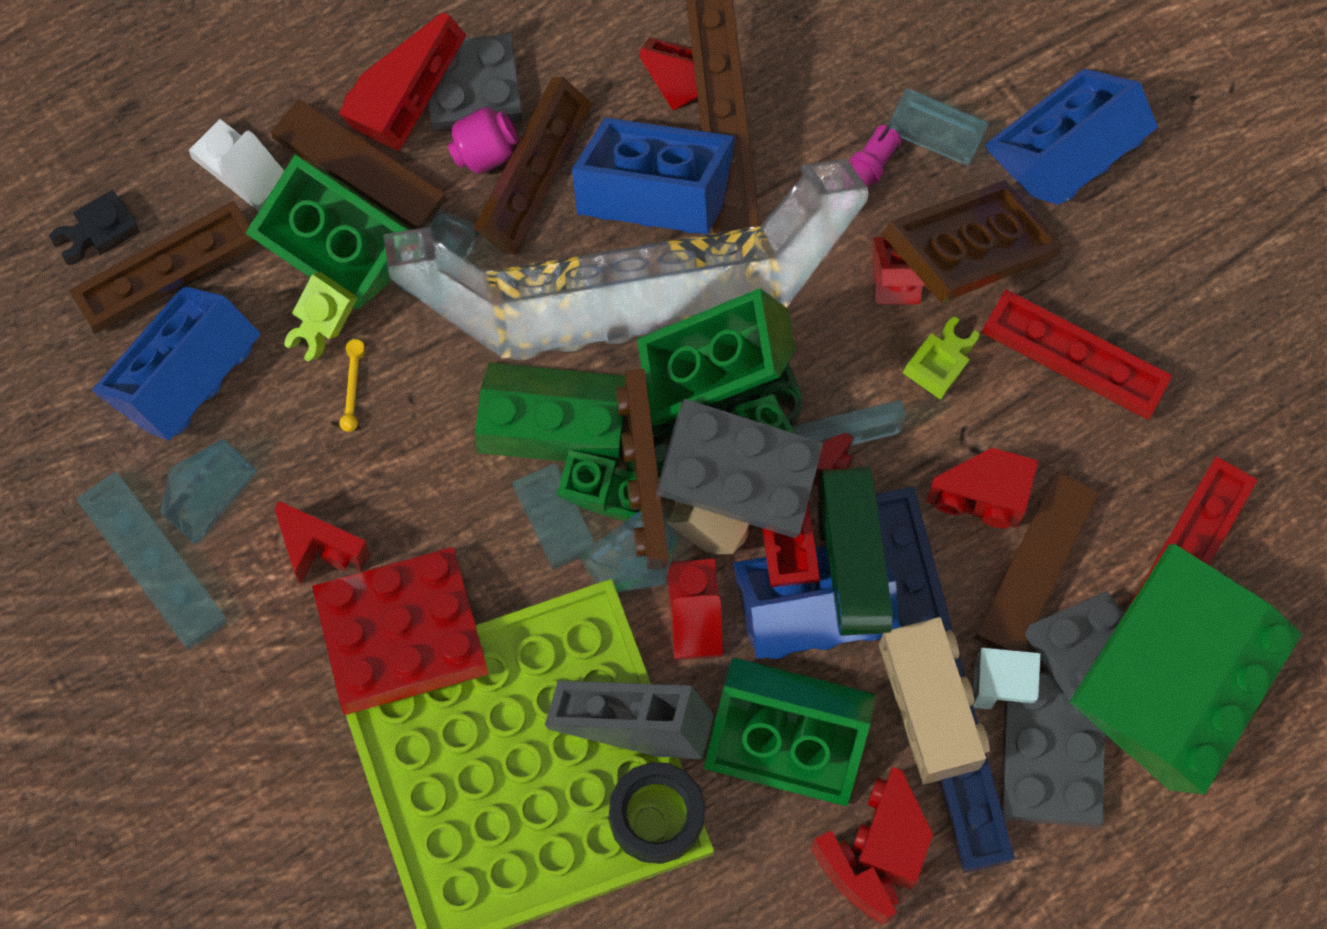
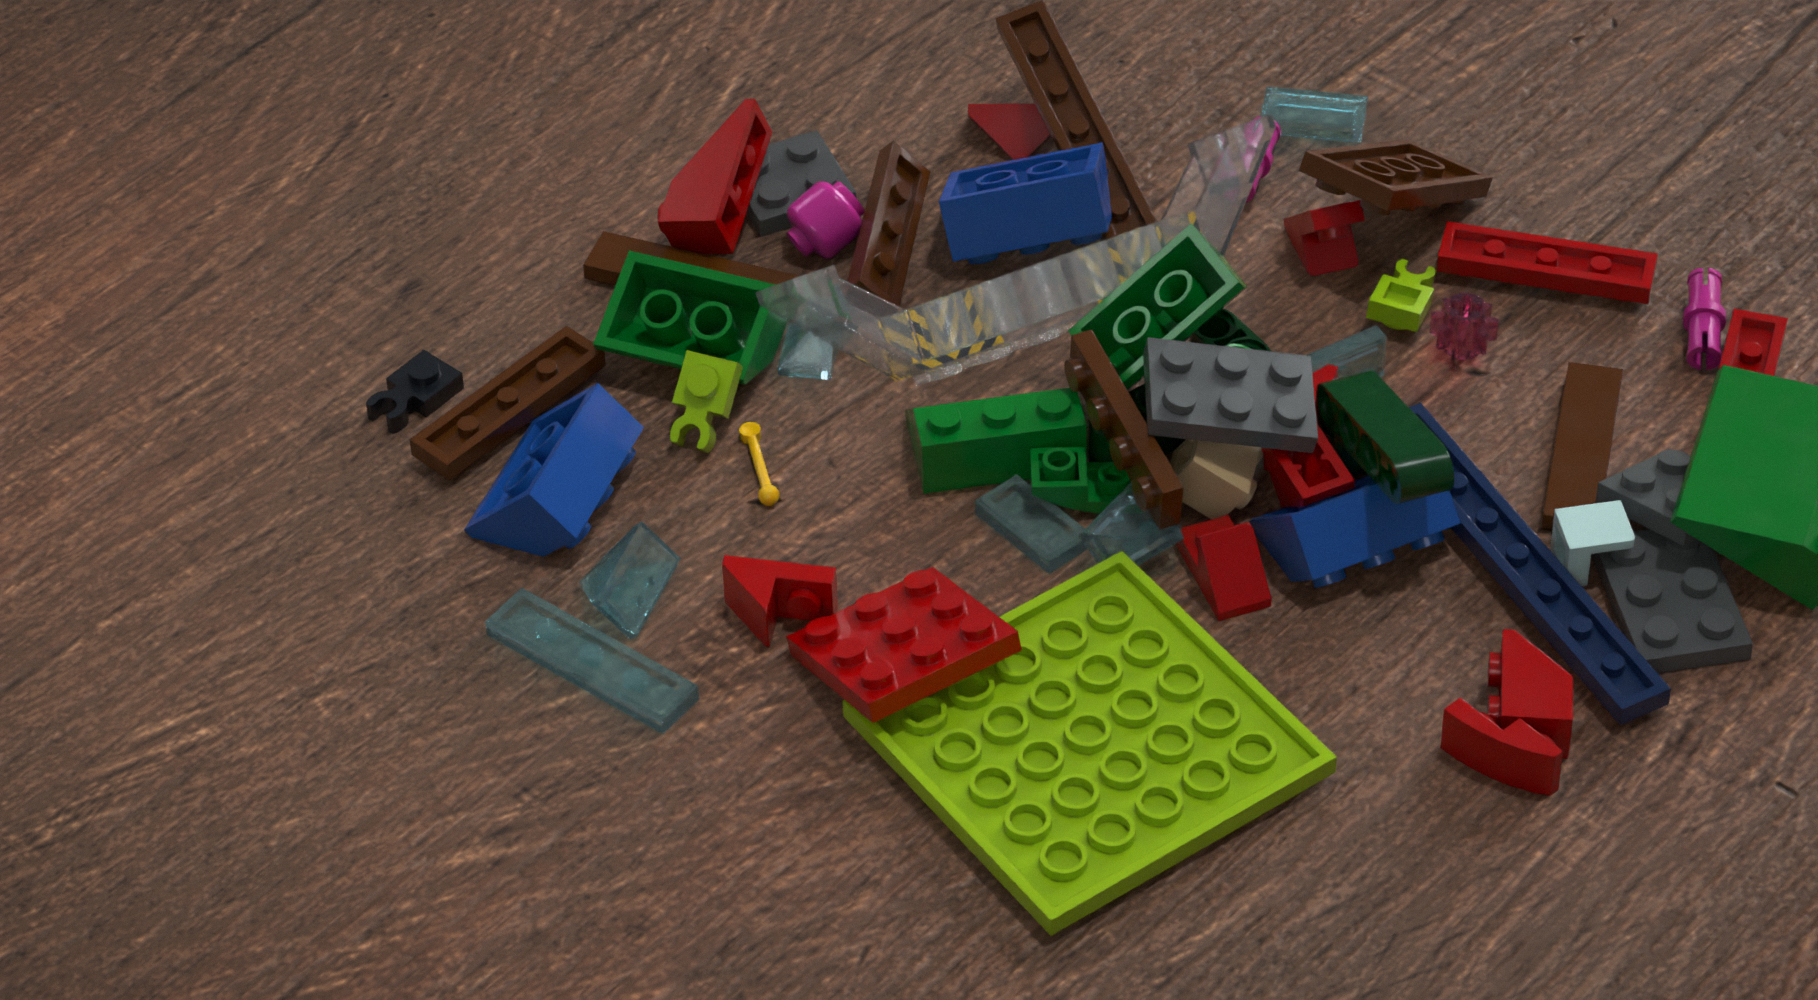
camera: 10 degrees left, 25 degrees down
(238, 162) = (556, 298): white slope -> none
(632, 716) = (1203, 645): dark grey slope -> none
(656, 774) = (1253, 757): black tyre -> none
(790, 731) = (1376, 641): green slope -> none
(934, 700) = (1522, 562): tan brick -> none
(984, 395) = (1464, 326): none -> clear pink gear
(986, 486) = (1498, 389): red slope -> none
(1074, 134) = (1465, 85): blue slope -> none
(1188, 454) = (1704, 318): none -> dark pink pin

